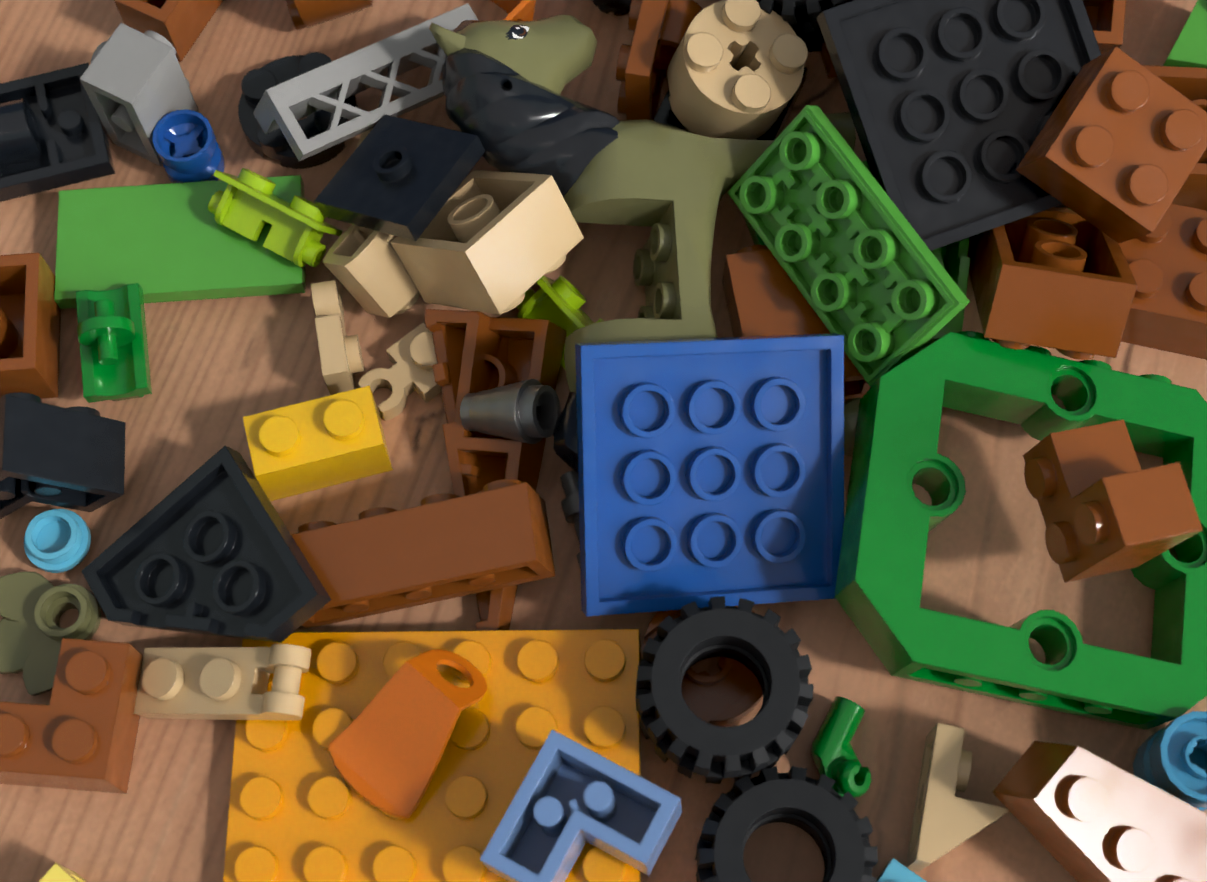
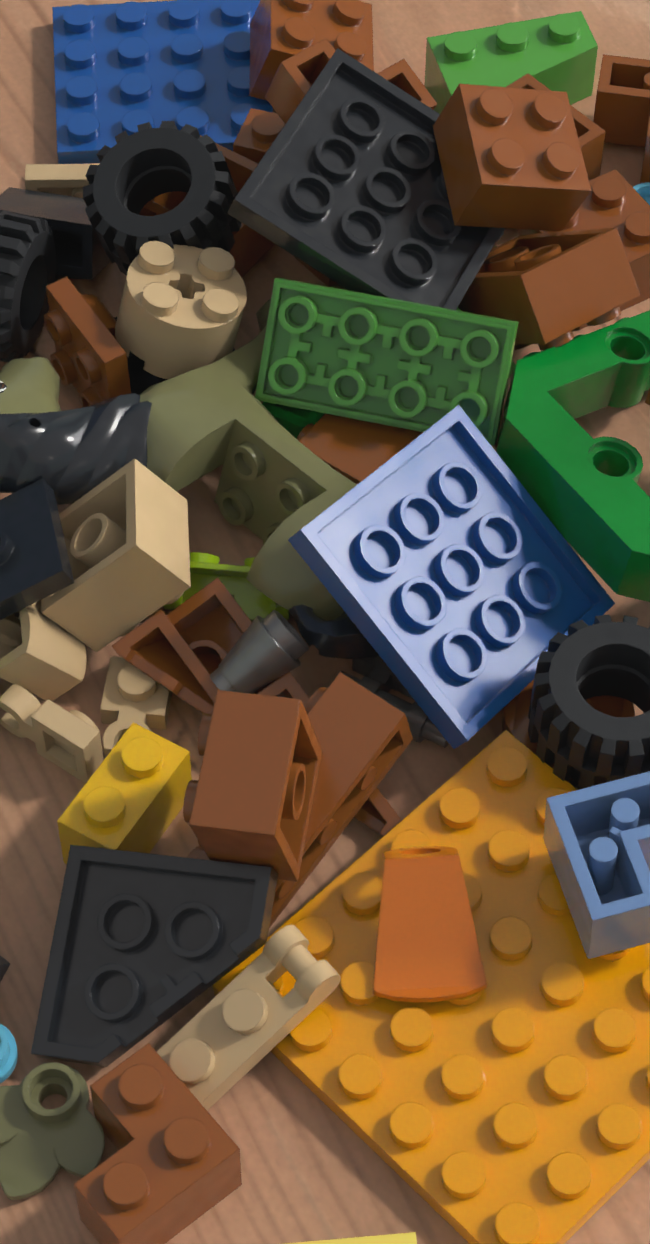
camera: 45 degrees left, 15 degrees down
(352, 524) = (254, 782): none -> dark orange brick

